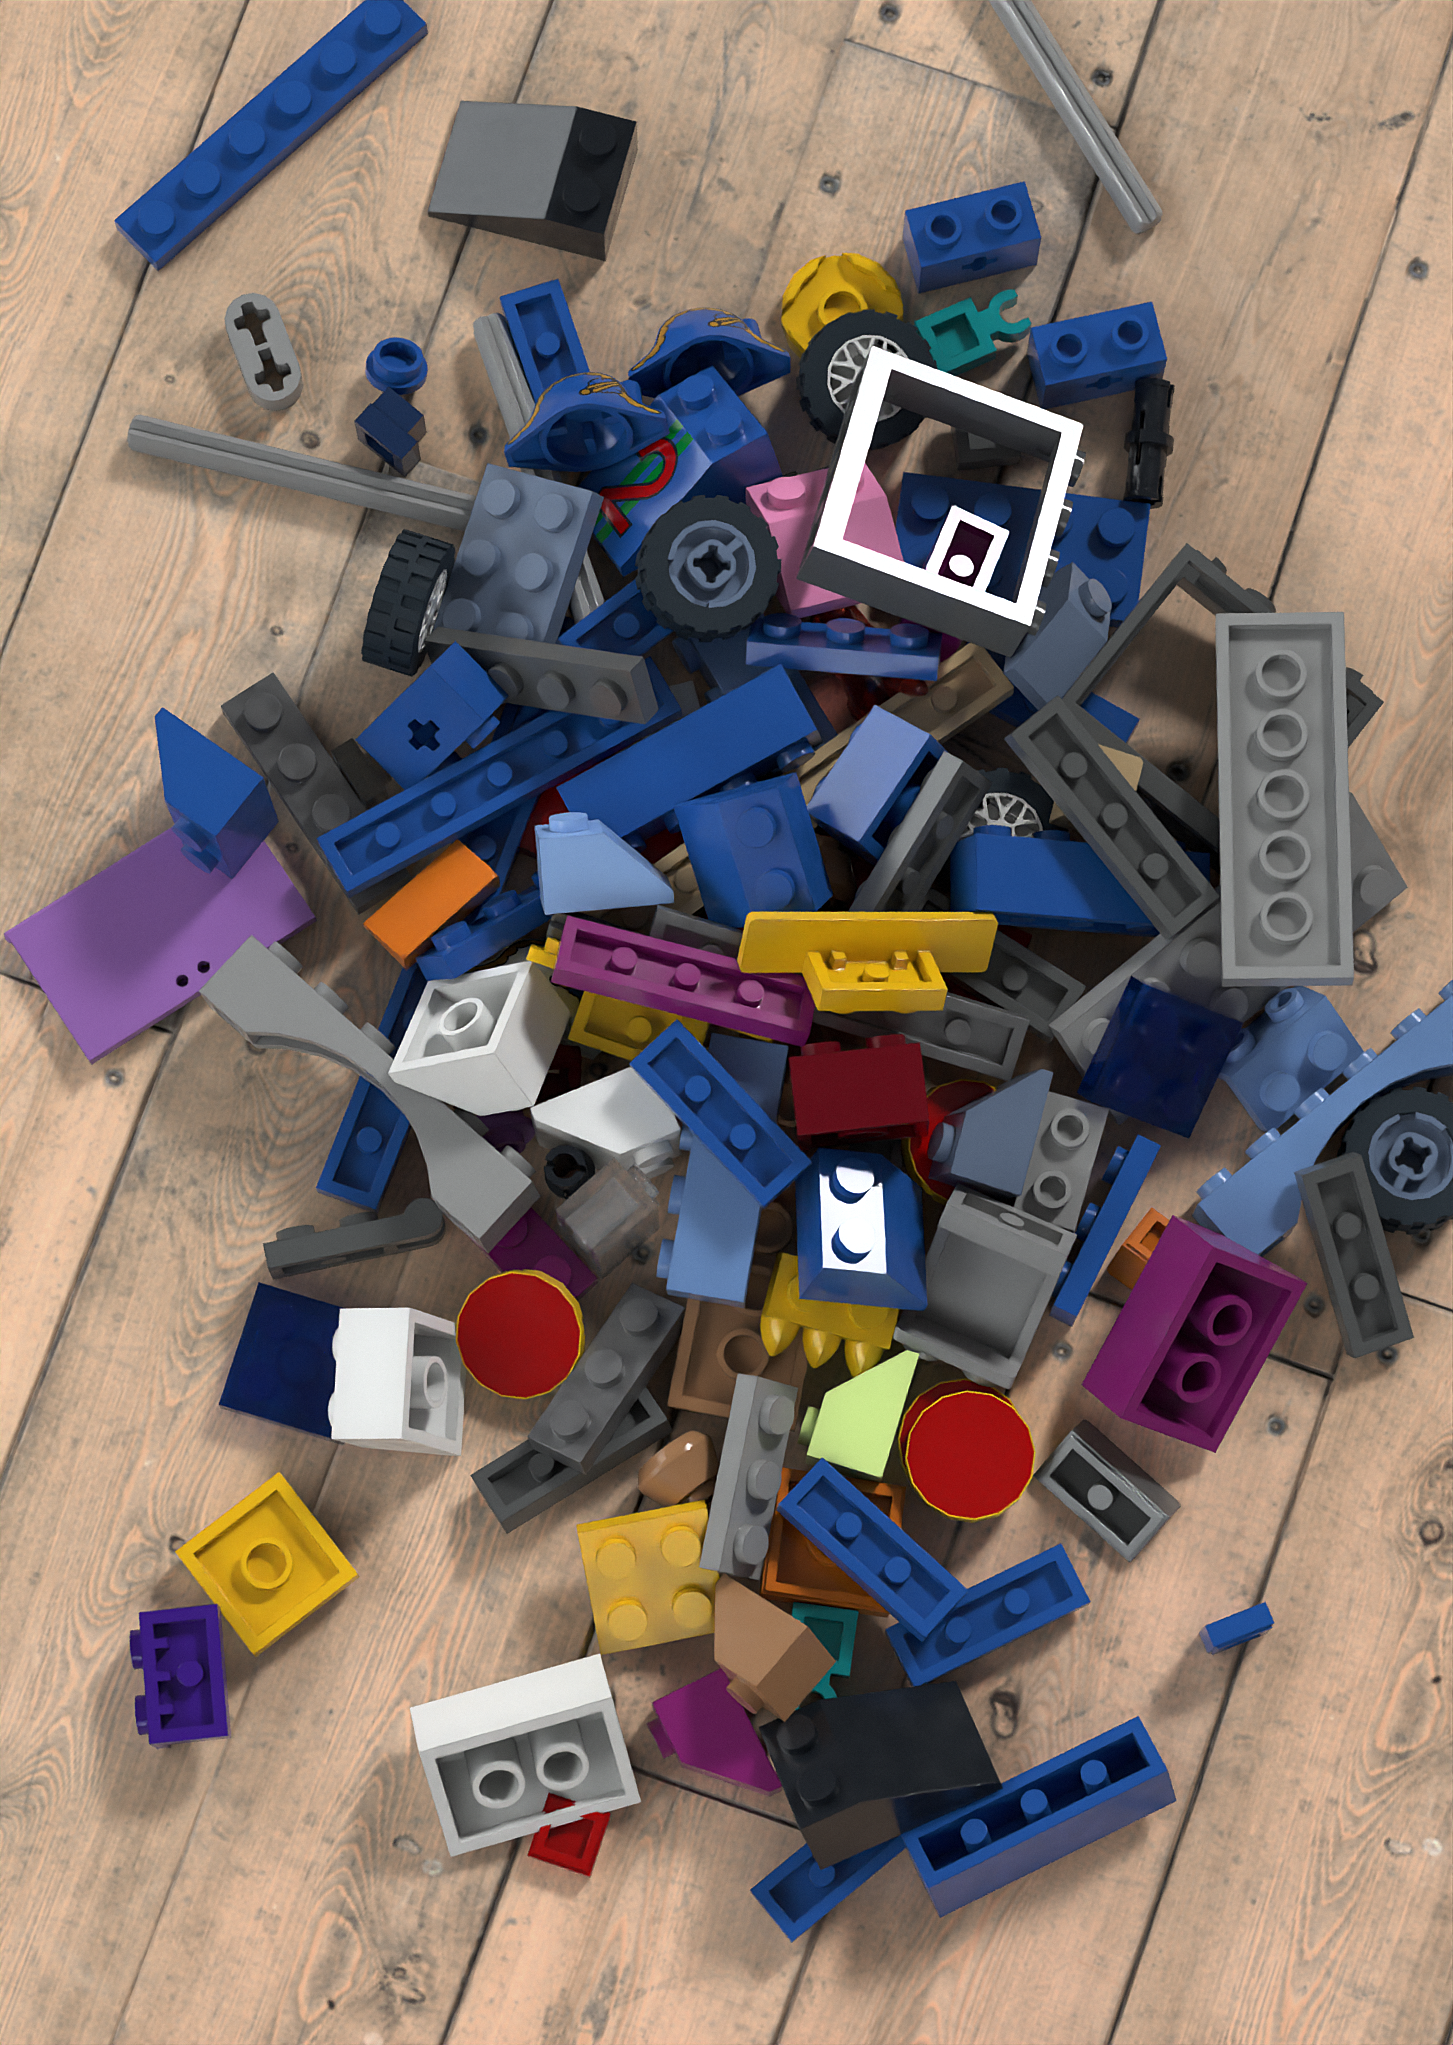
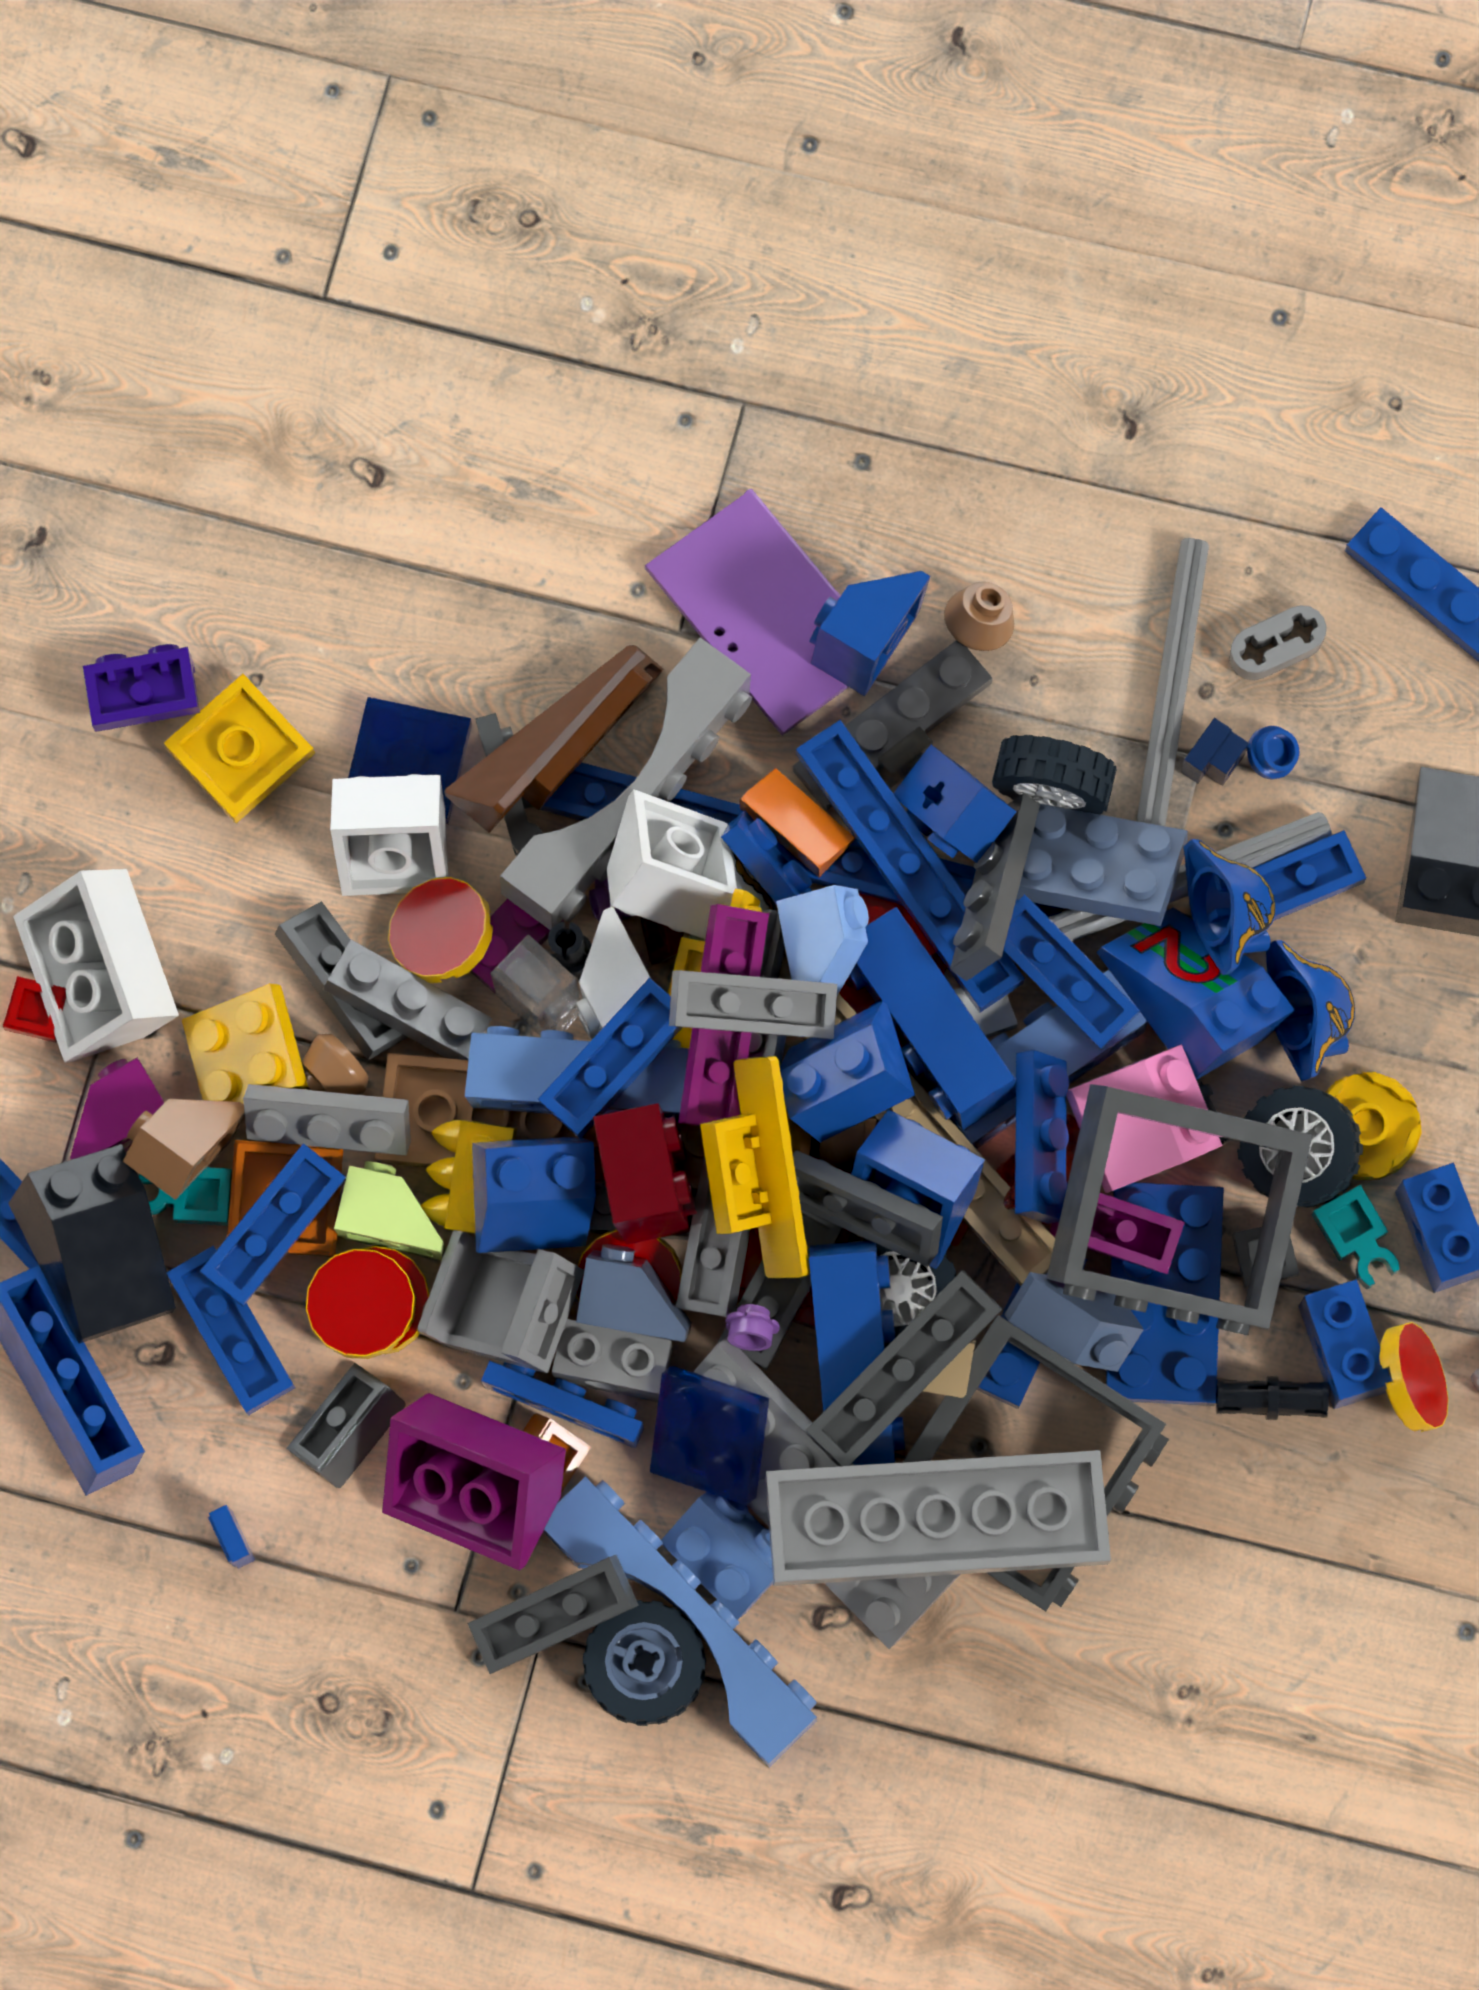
camera: 90 degrees right, 0 degrees up
(198, 676) = (980, 616): none -> medium nougat cone
(308, 1173) = (555, 742): none -> reddish brown wedge
(679, 939) = (753, 1004): none -> light grey plate
(707, 568) = (1096, 1011): black wheel -> none
(1043, 993) = (751, 1328): none -> medium lavender plate
(1134, 281) = (1418, 1378): none -> red tile

